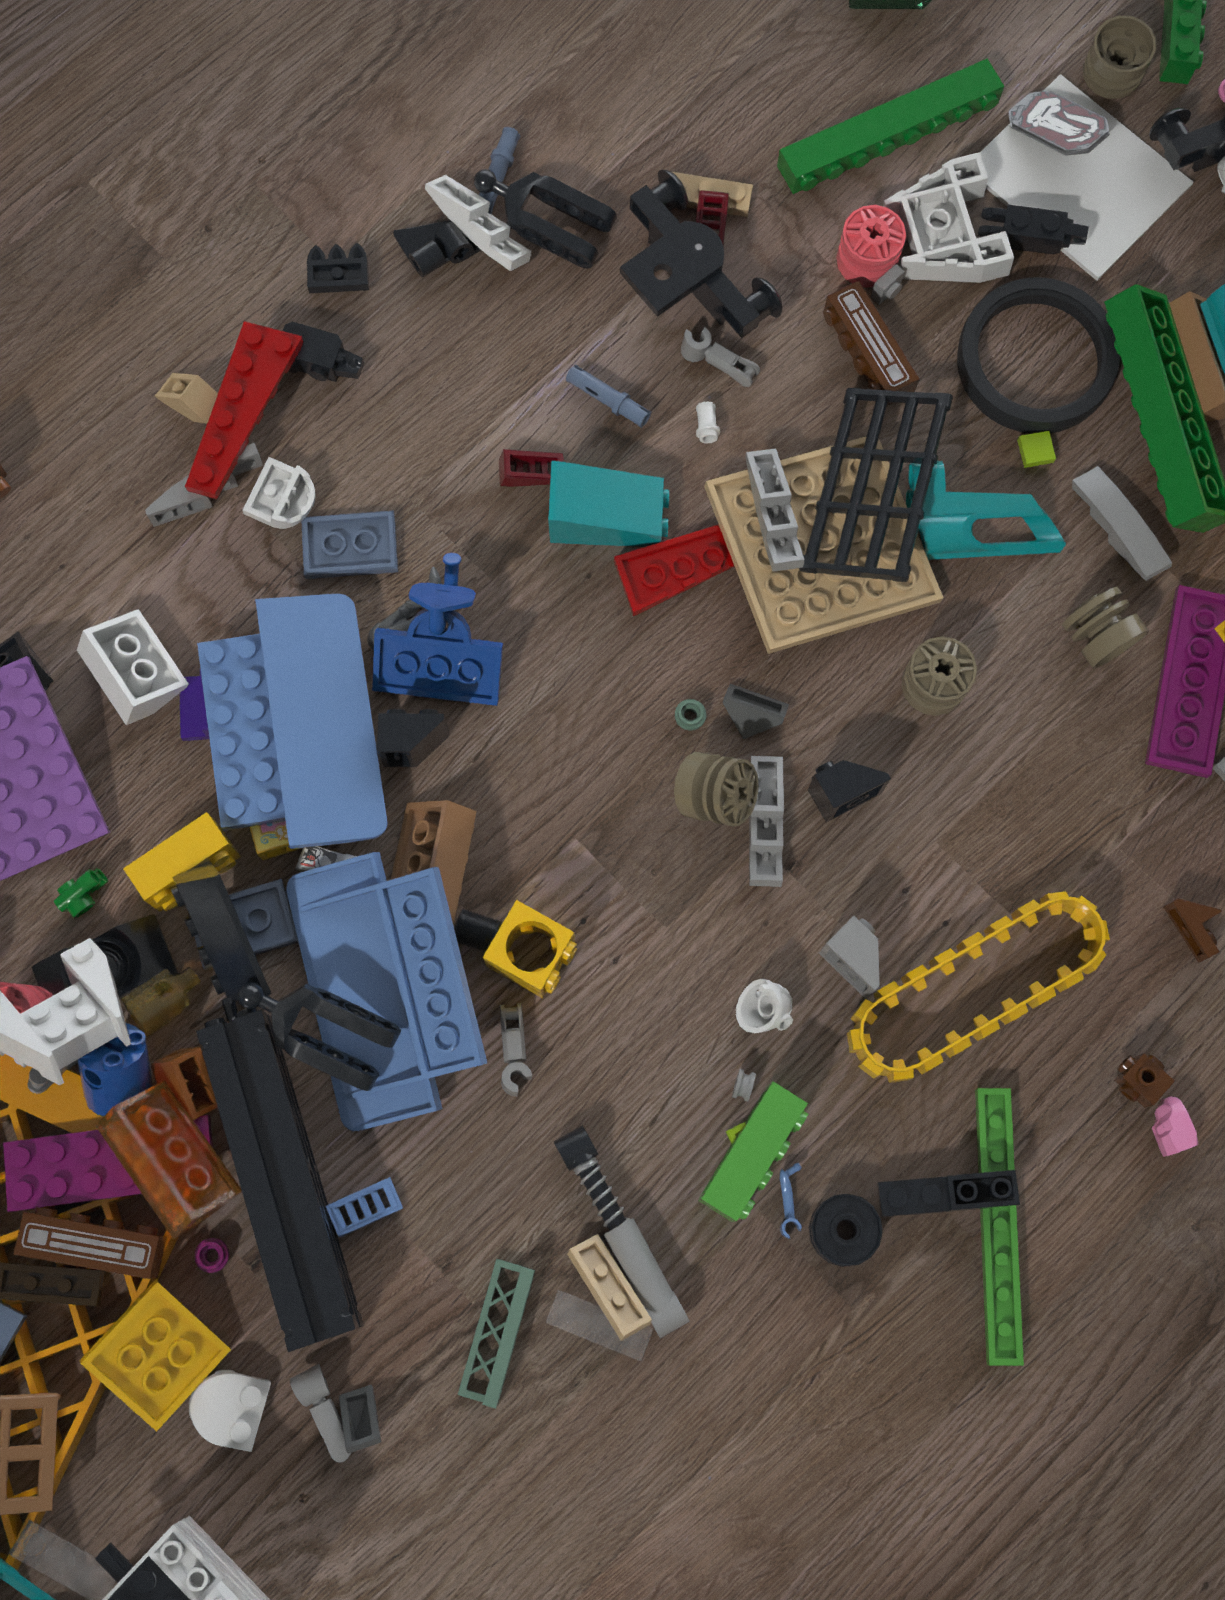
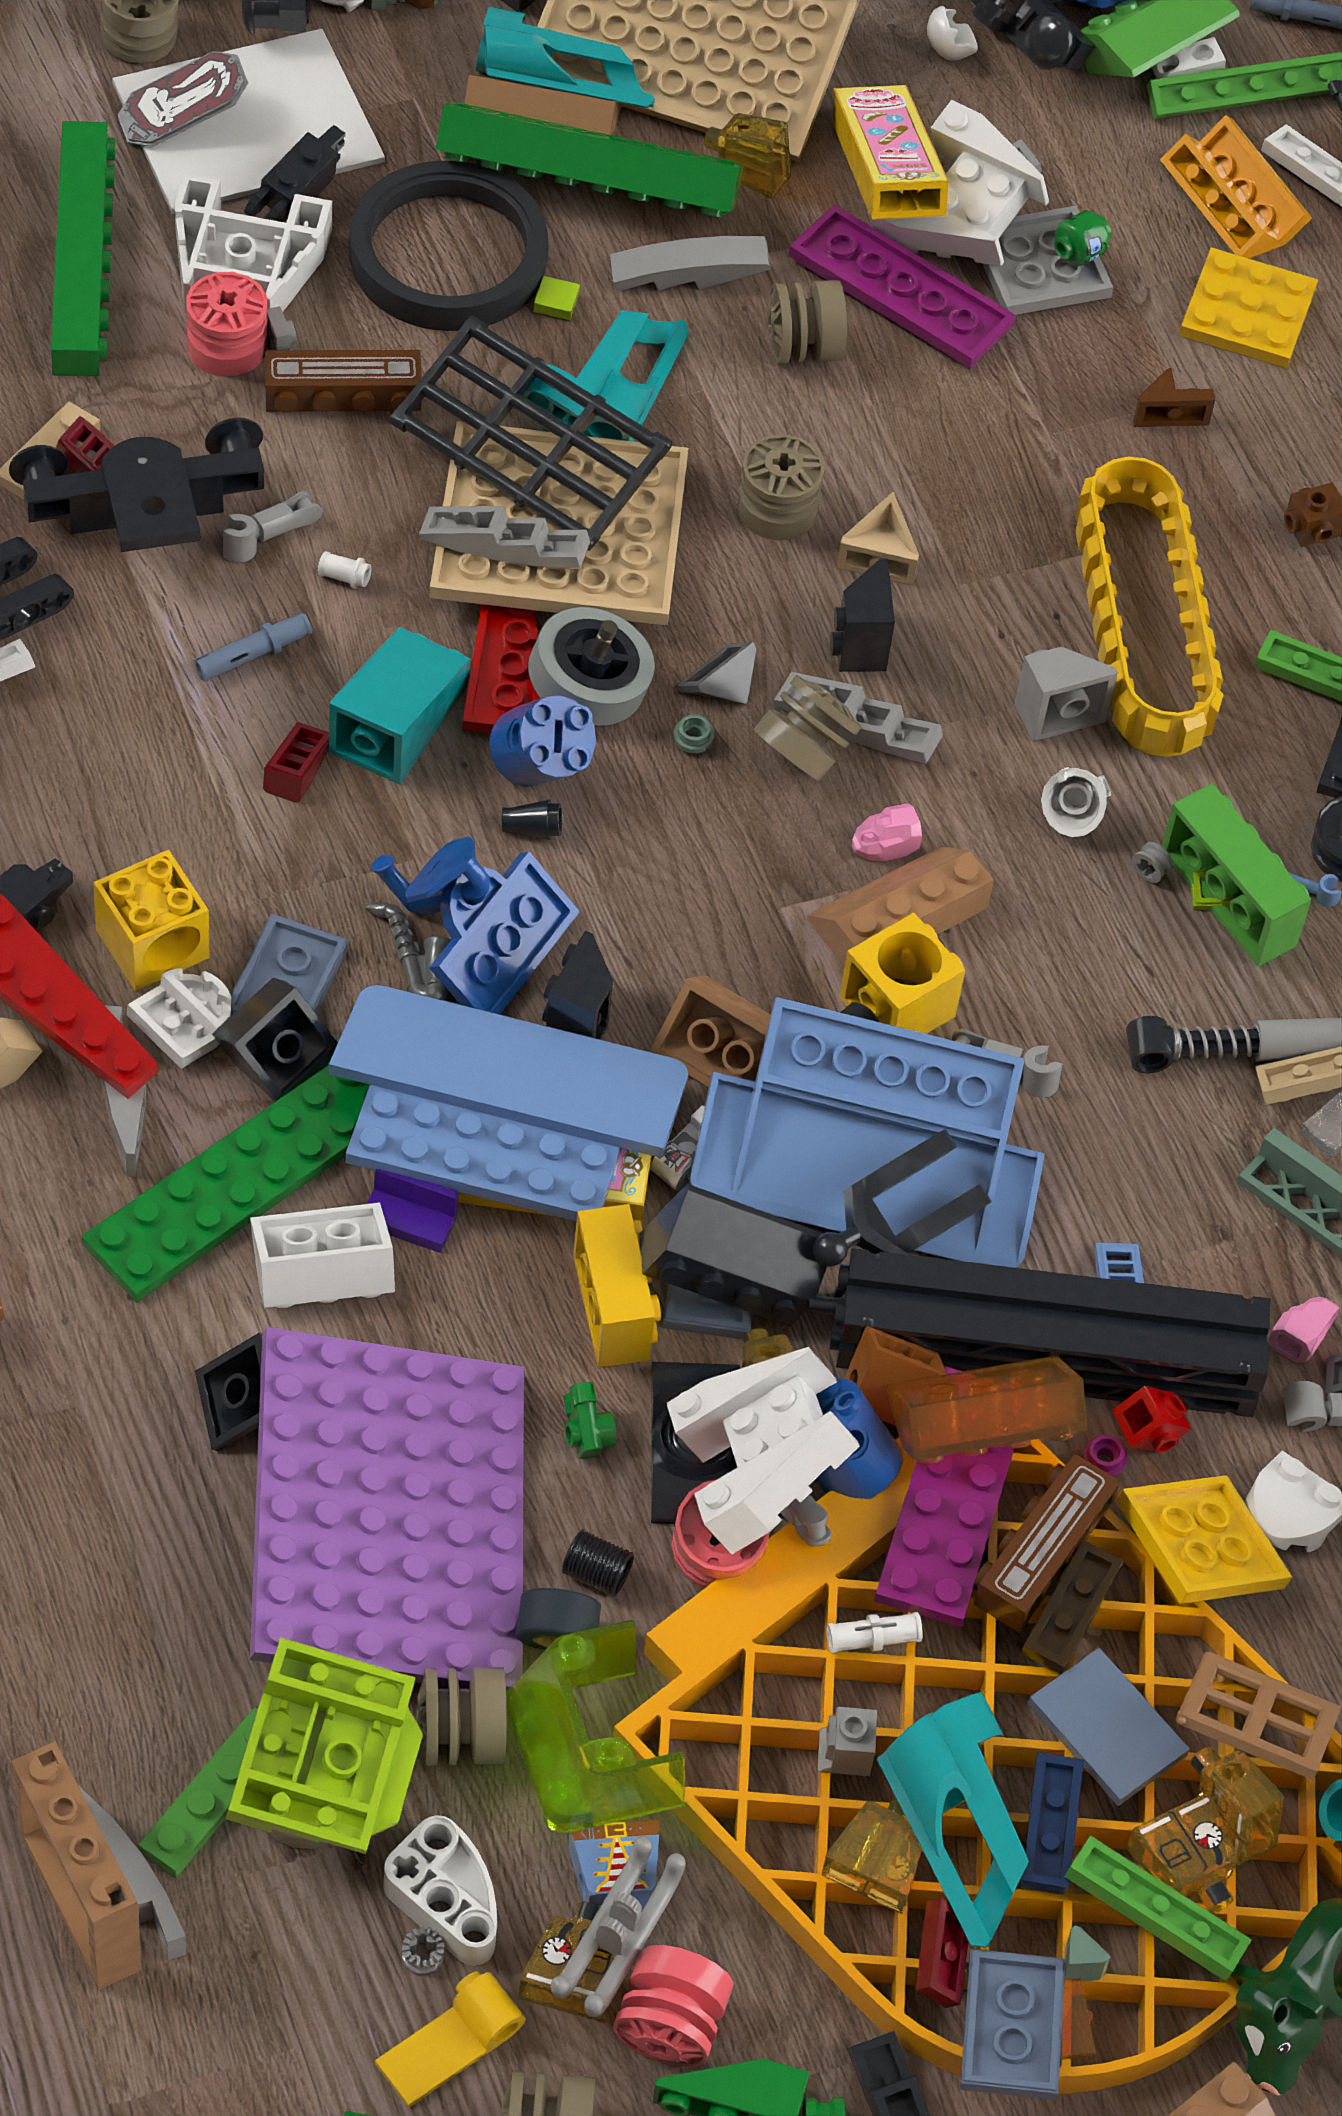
camera: 70 degrees left, 20 degrees down
(161, 581) = (228, 1184): none -> green plate
(243, 1278) = (1152, 1419): none -> red brick
(282, 558) = (276, 1039): none -> black slope
(335, 437) = (151, 919): none -> yellow brick
(382, 1359) = (1303, 1328): none -> bright pink rock
(558, 643) = (535, 819): none -> black cone
(605, 615) = (543, 741): none -> blue cylinder
(611, 919) = (937, 887): none -> medium nougat slope
(670, 884) = (888, 834): none -> bright pink rock
(702, 618) = (593, 661): none -> wheel
(926, 768) = (881, 536): none -> tan slope

